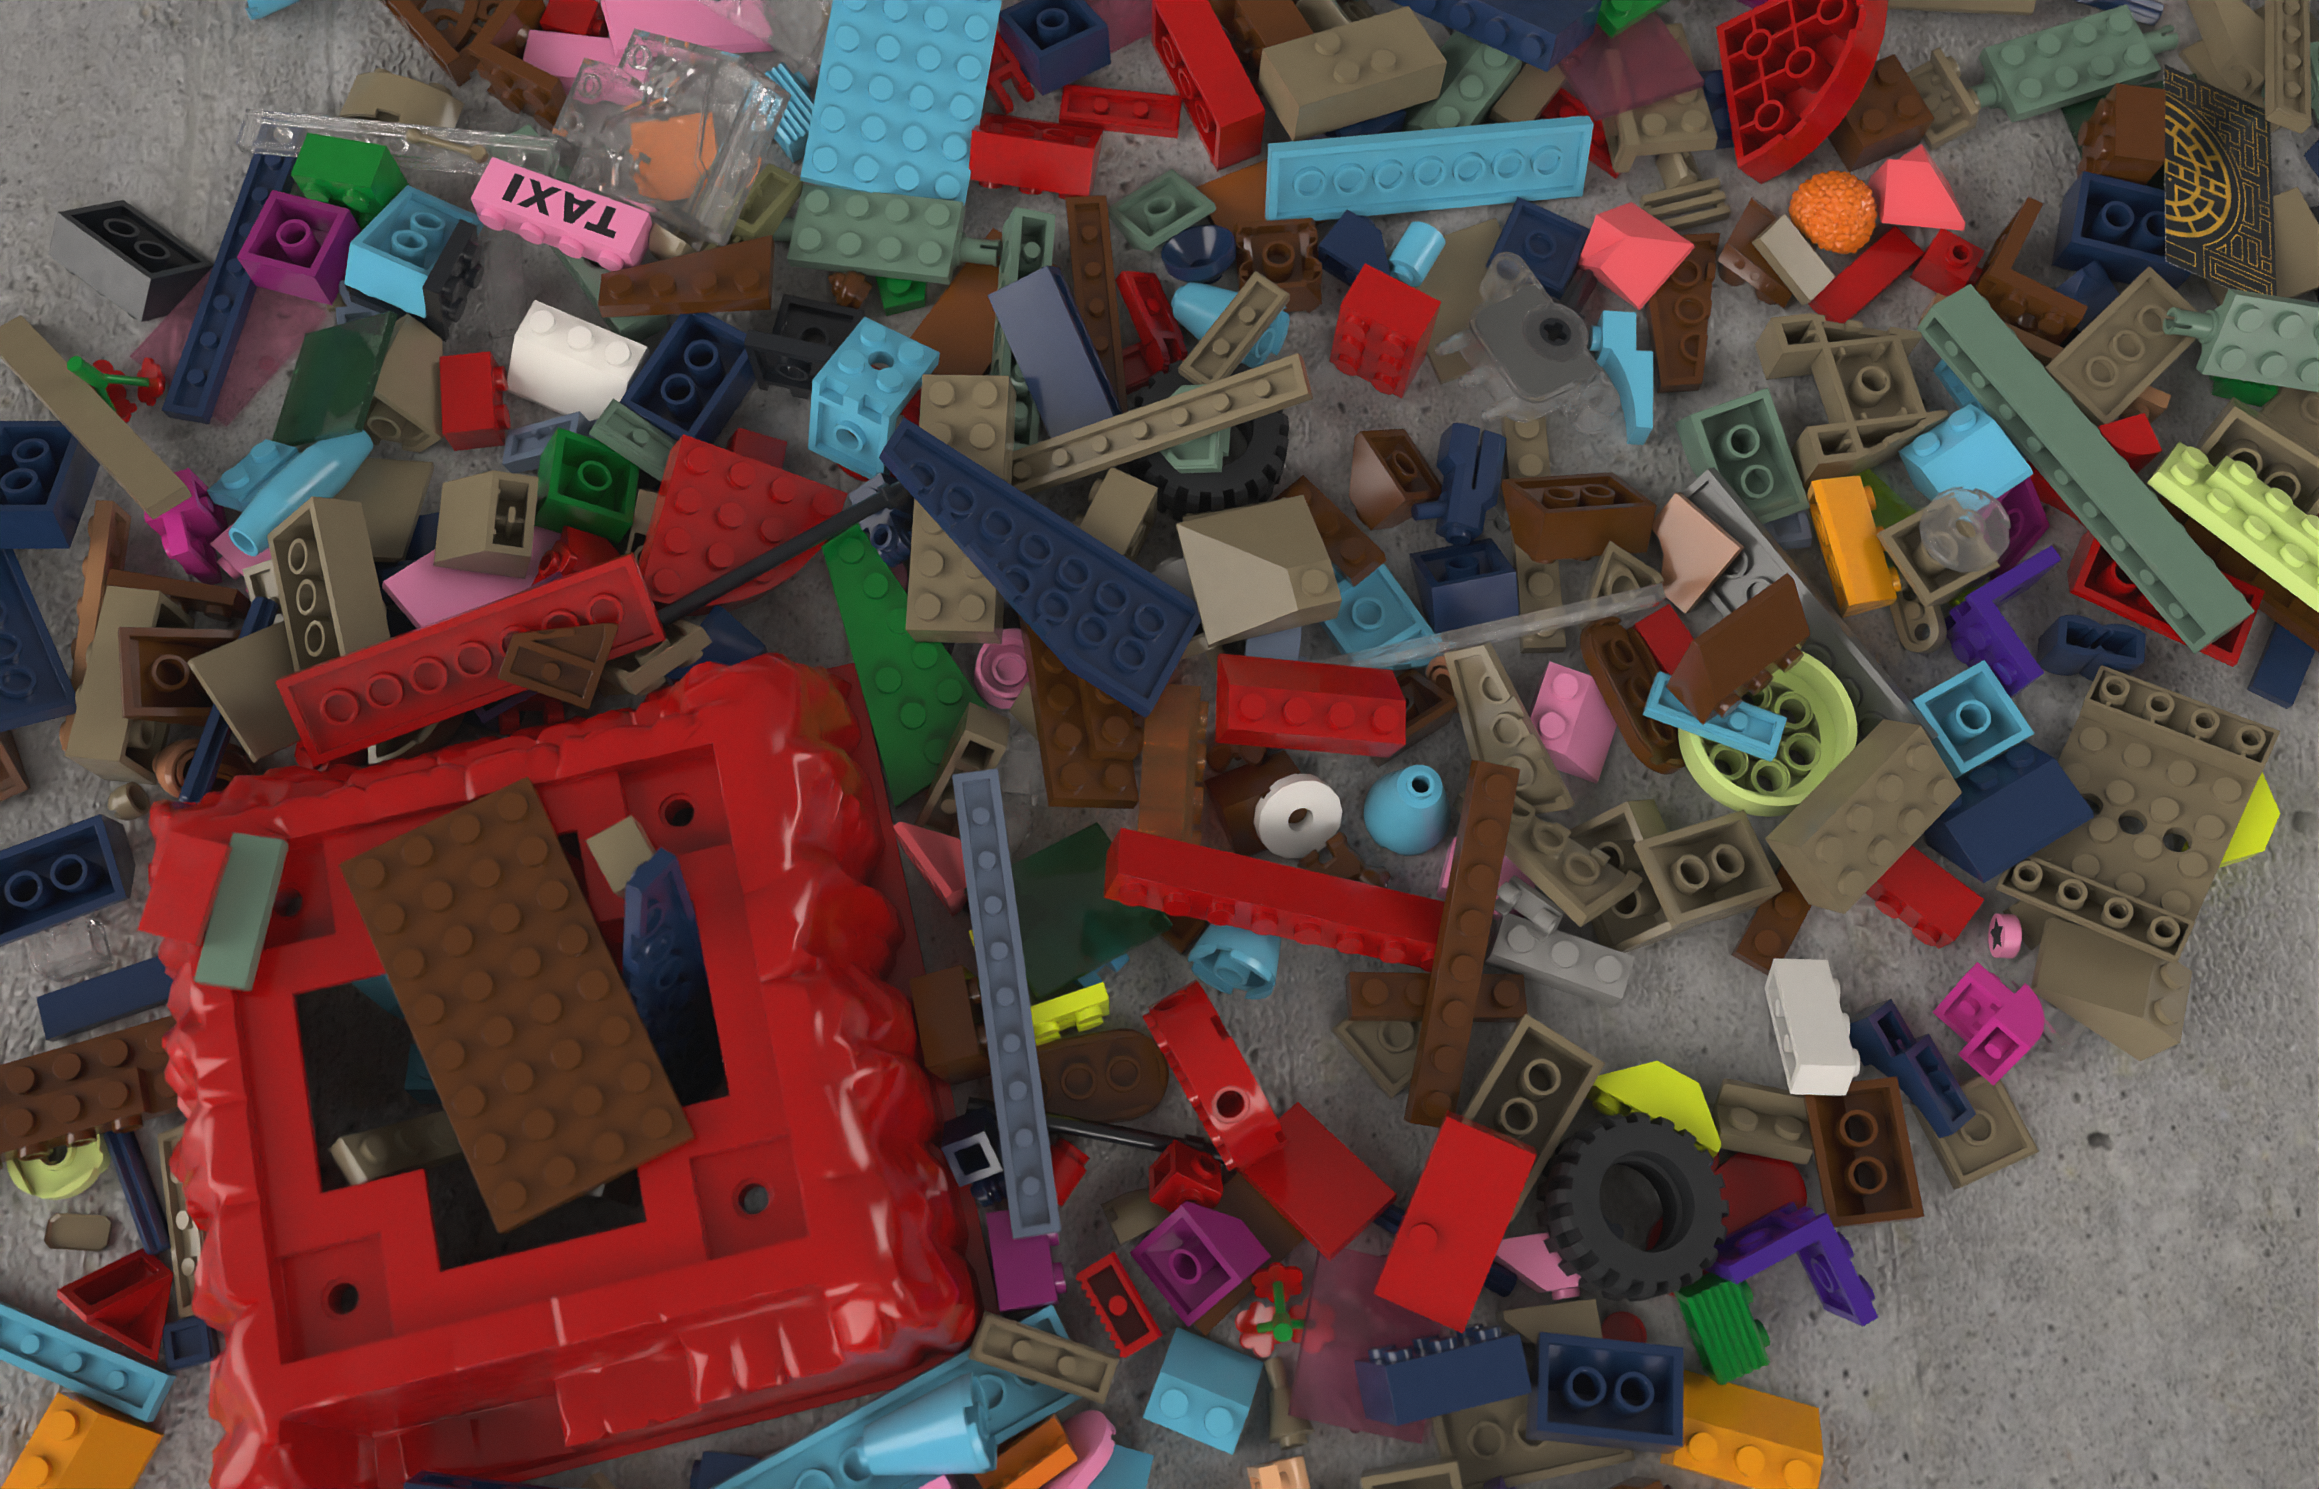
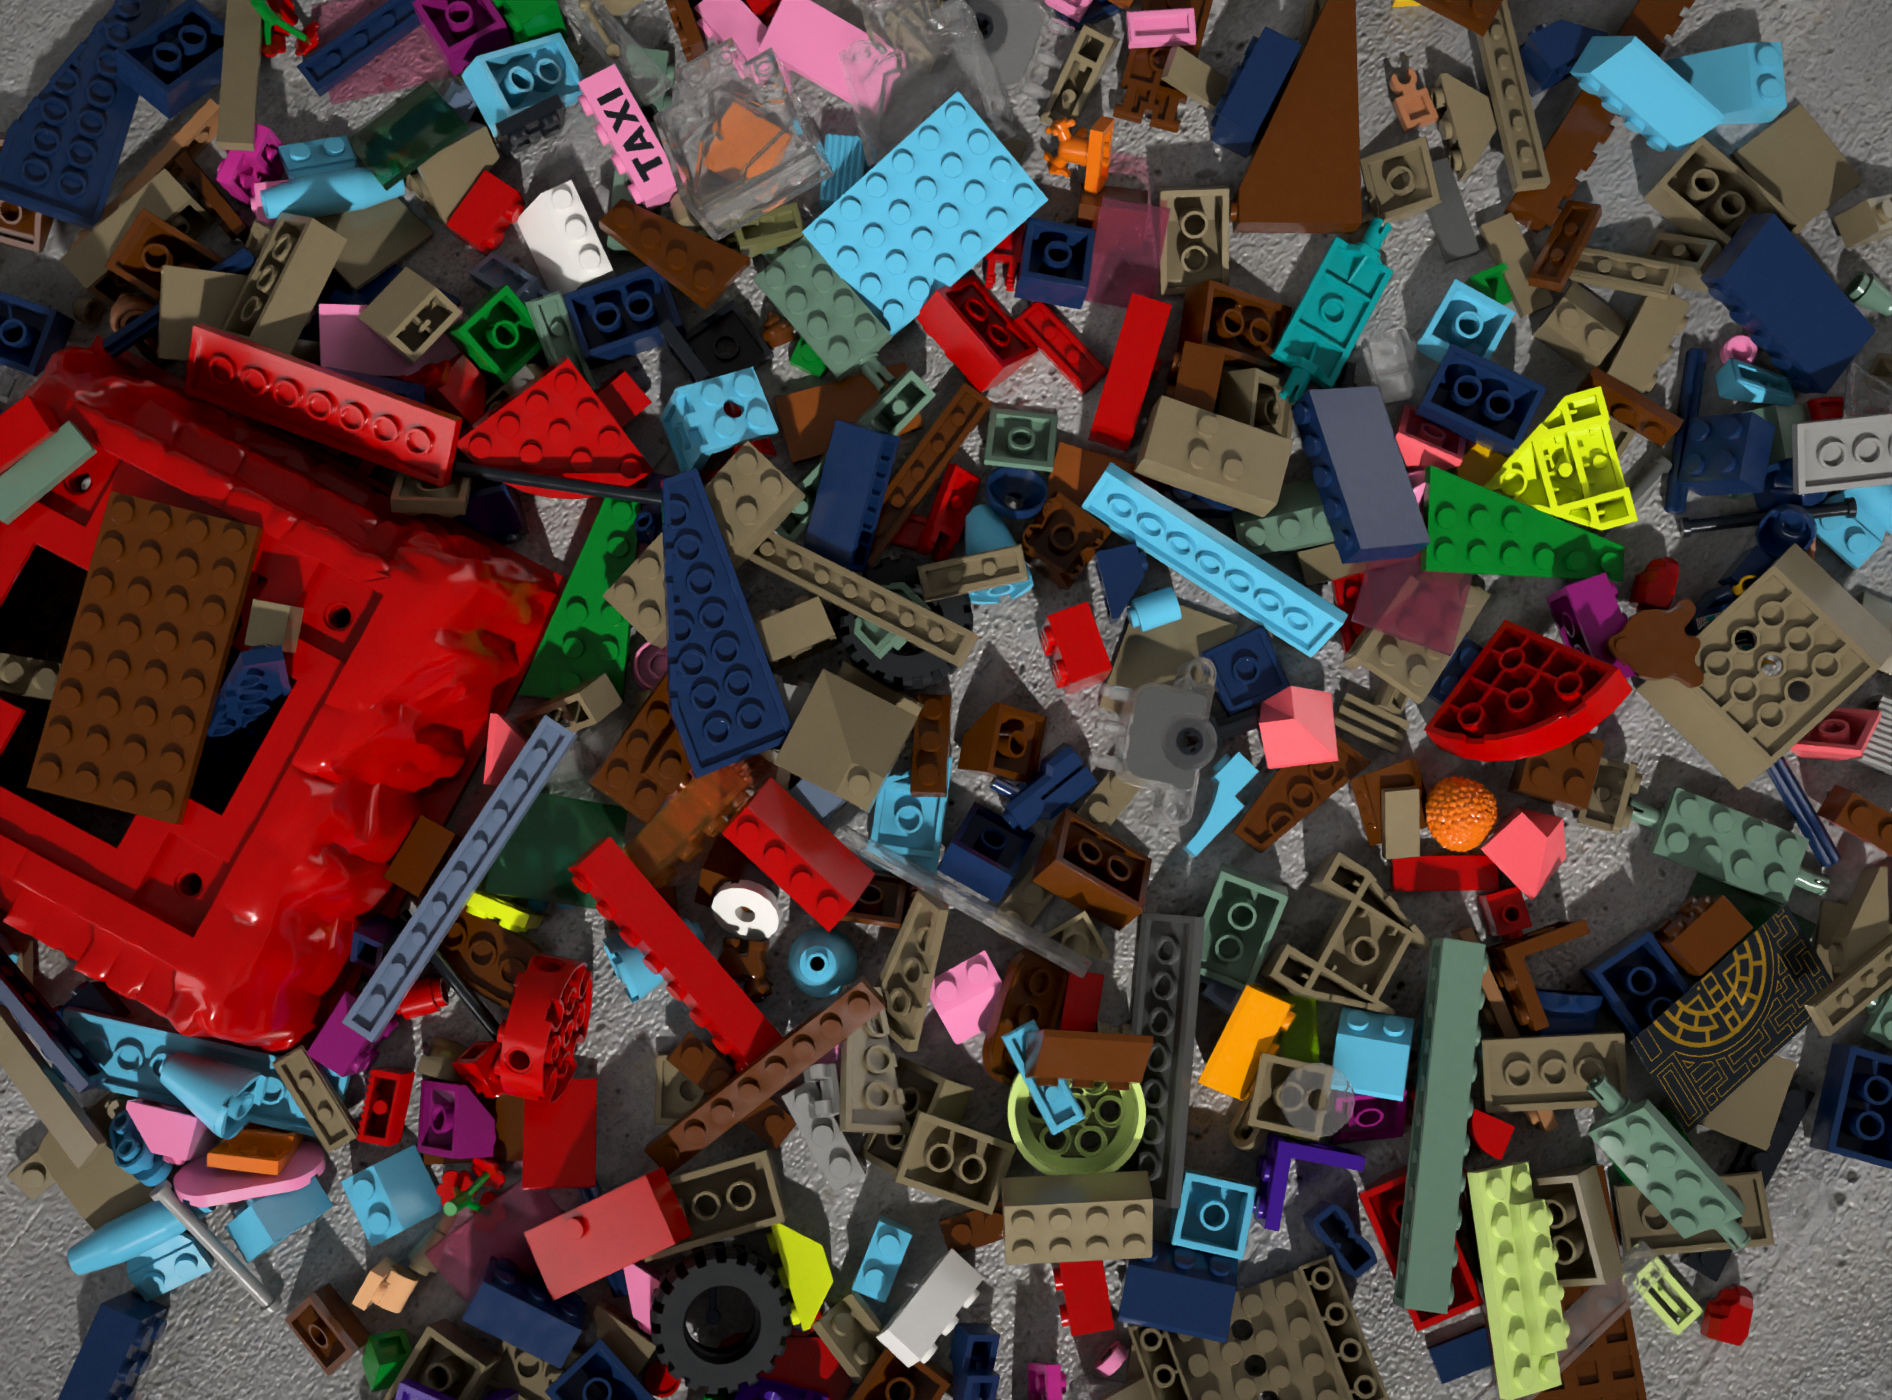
camera: 45 degrees right, 10 degrees up
(560, 661) = (366, 451): reddish brown wing -> none
(1693, 551) = (1146, 956): nougat tile -> none
(1719, 1027) = (882, 1259): none -> medium azure brick

